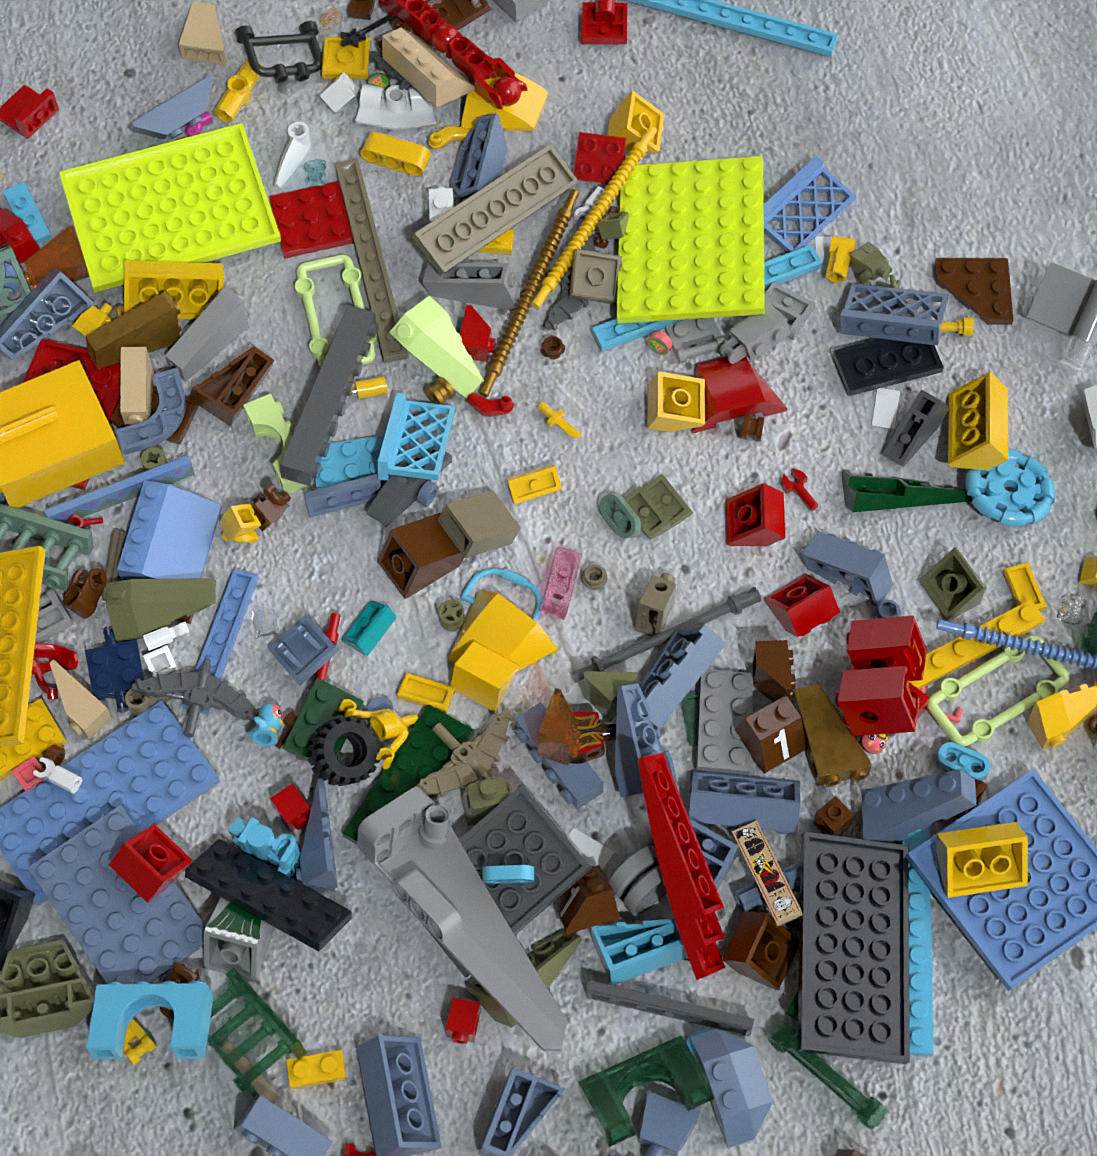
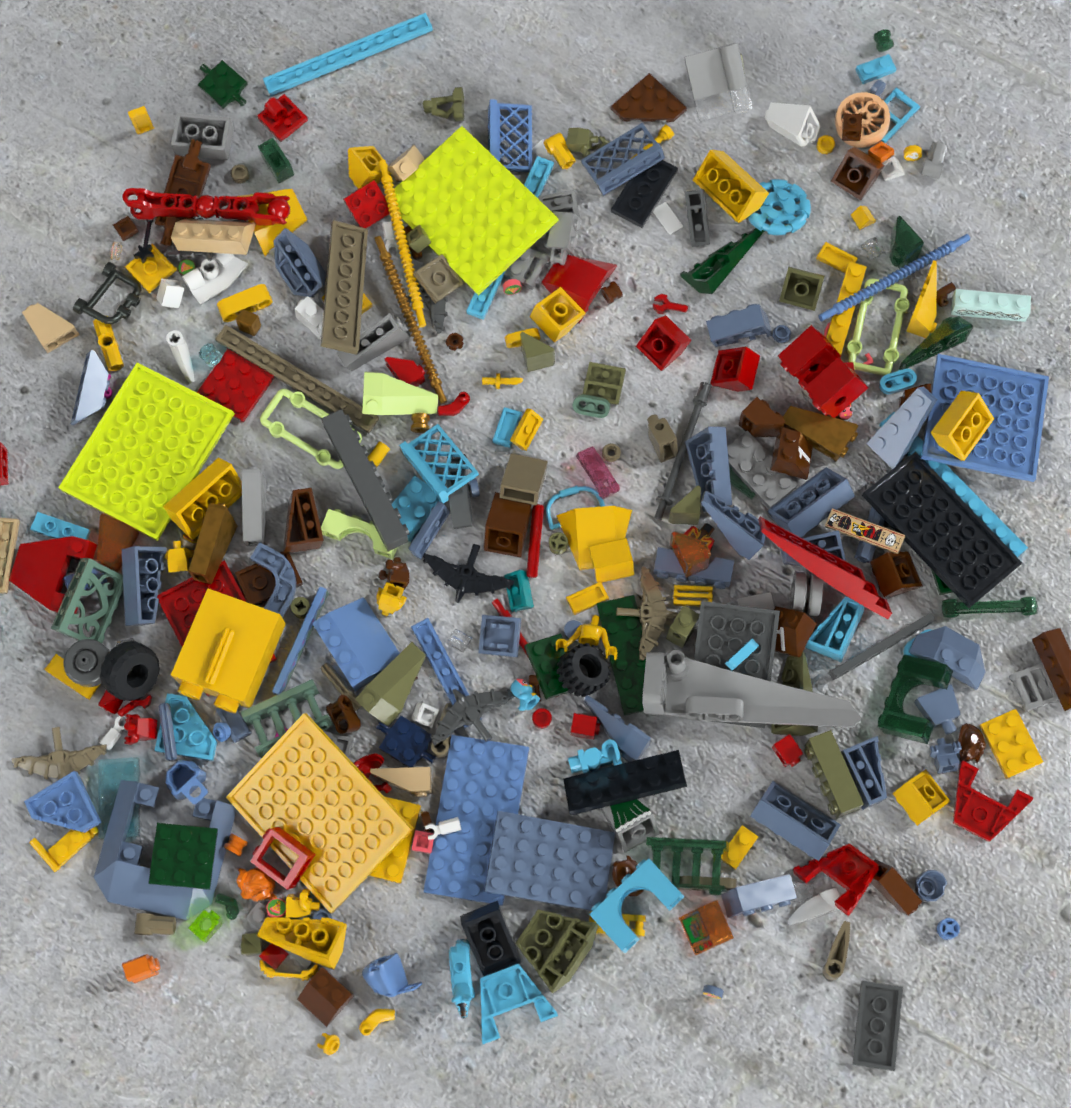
camera: 40 degrees left, 10 degrees up
(79, 522) = (296, 680): red hand -> none
(136, 384) = (249, 574): tan slope -> none
(150, 862) = (550, 825): red slope -> none
(164, 636) = (414, 698): white bar -> none
(201, 1116) = (706, 928): none -> clear orange slope
(262, 765) = (542, 718): none -> red tile
(331, 570) = (465, 577): none -> black bar
(380, 173) = (248, 322): none -> pearl gold slope
(432, 594) = (535, 541): none -> red axle
(447, 135) = (262, 264): yellow arm -> none
(480, 1085) = (833, 774): none -> olive brick
(514, 42) = (239, 173): none -> dark tan tile
(516, 767) = (709, 589): none -> yellow tile
(518, 464) = (507, 424): none -> medium azure tile
(556, 52) = (276, 160): none -> clear green brick
(613, 420) = (536, 353): none -> olive slope
(620, 397) = (513, 339): none -> yellow beam
(676, 150) = (406, 164): none -> tan slope
(786, 134) = (457, 108): none -> olive piece
(833, 818) = (865, 471): reddish brown brick -> none
(1055, 760) = (948, 335): none -> clear green wedge

